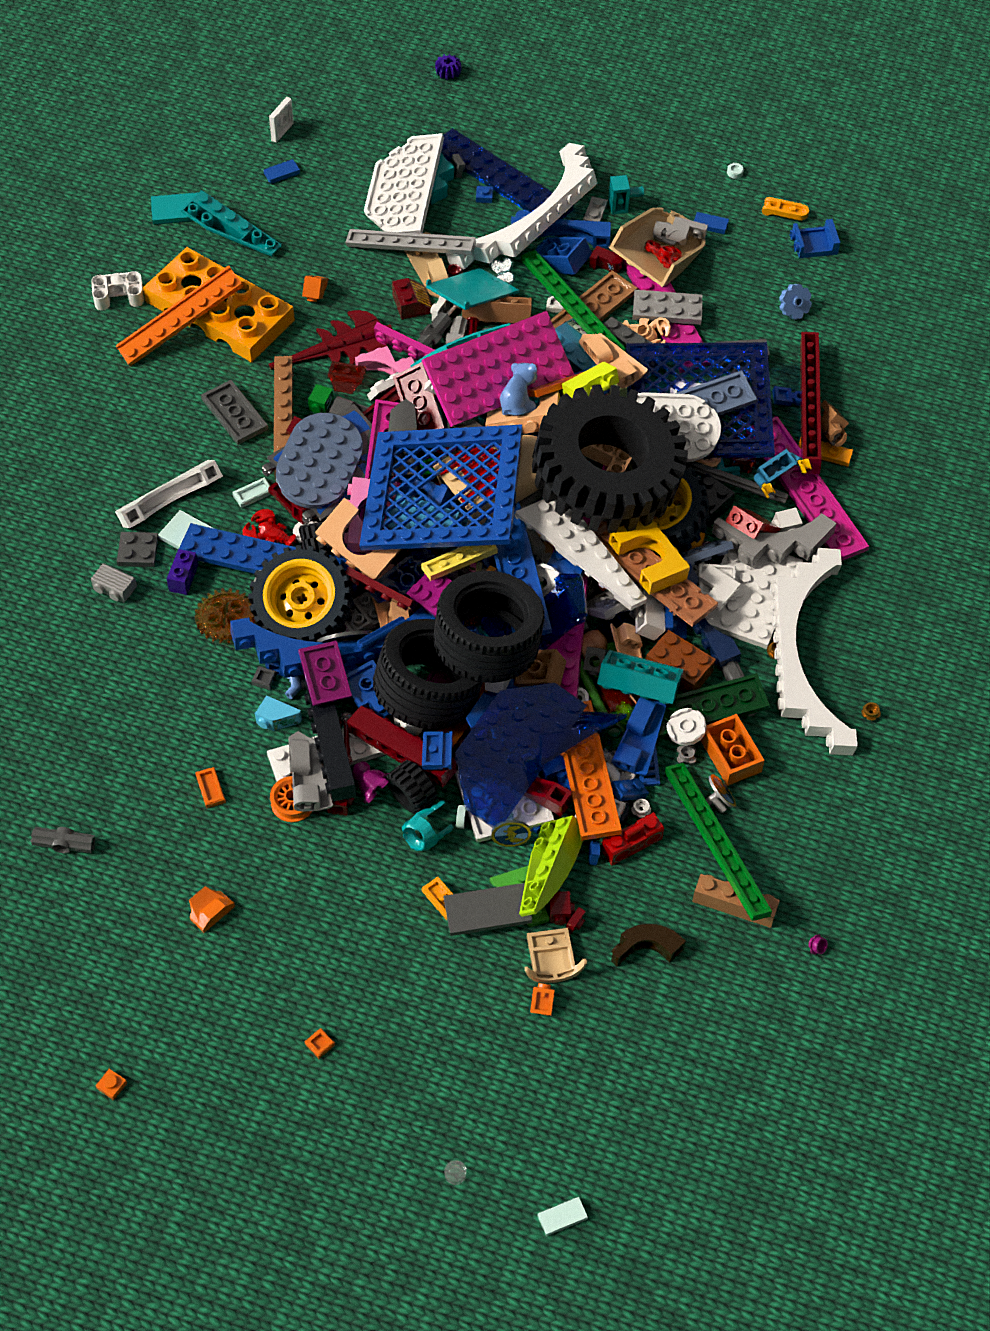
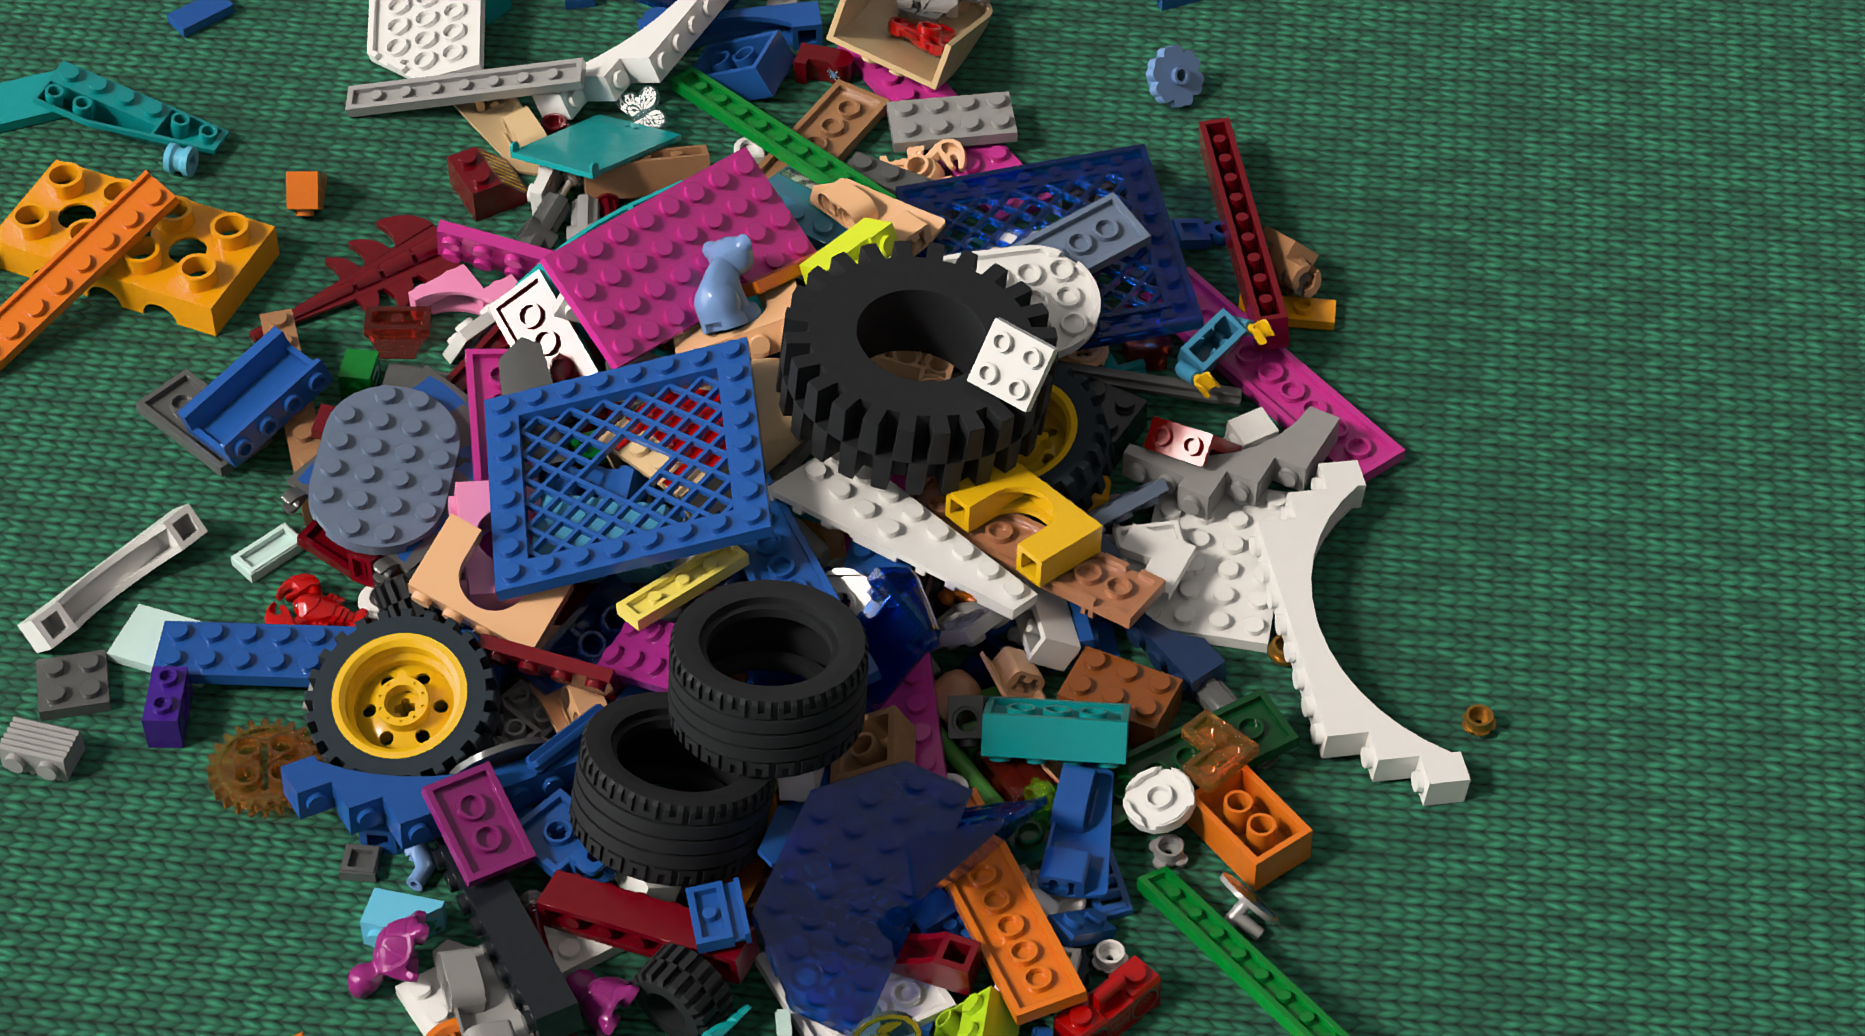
camera: 10 degrees left, 10 degrees down
(253, 257) = (180, 159): none -> medium azure wheel
(261, 405) = (254, 397): none -> blue panel
(268, 735) = (391, 956): none -> magenta animal
(657, 472) = (1012, 364): none -> white plate
(726, 705) = (1221, 750): none -> clear orange plate

